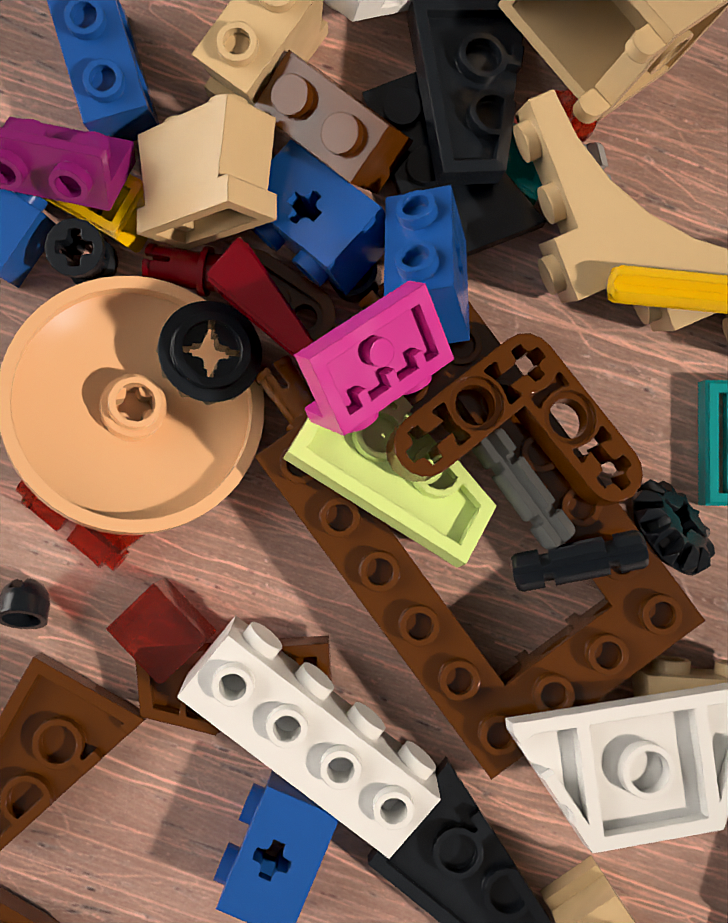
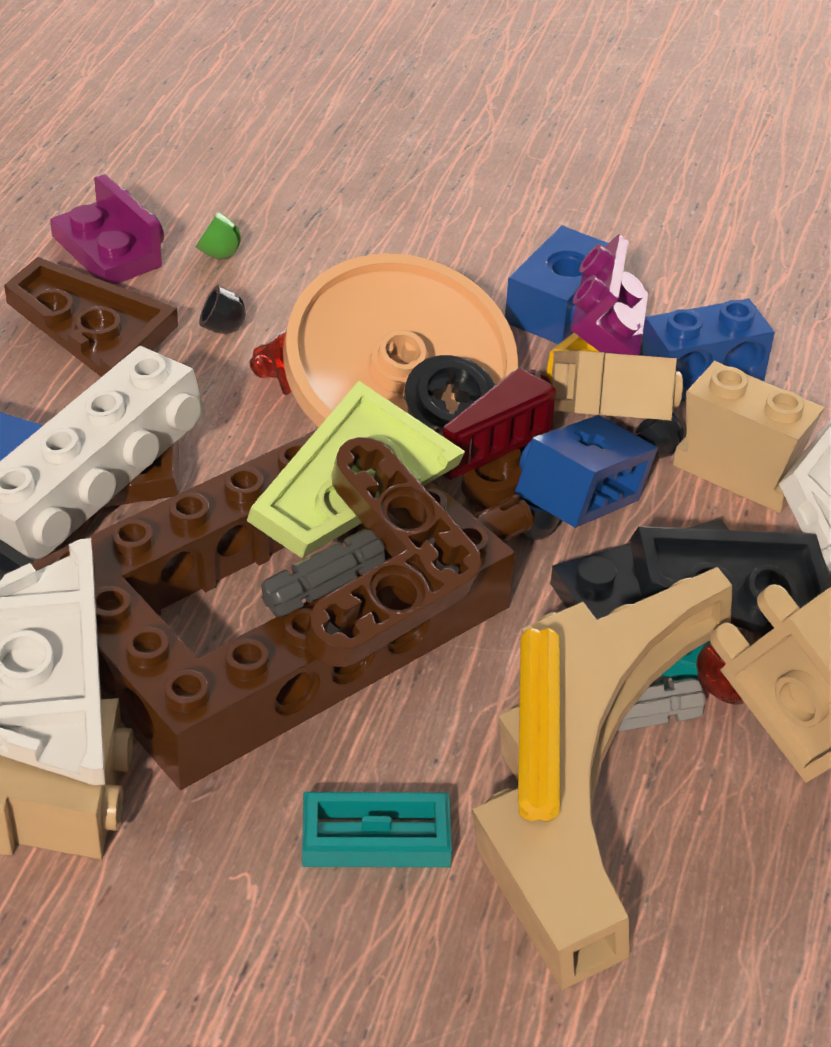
camera: 90 degrees right, 45 degrees down
(70, 238) = (539, 339): black bush -> none
(161, 630) = (215, 373): clear red panel -> none
(333, 124) = (678, 474): brick -> none
(374, 359) = (444, 412): dark pink bracket -> none
(429, 247) = (542, 508): blue brick -> none
(580, 560) = (250, 607): black axle -> none
(672, 527) = (252, 740): black gear -> none

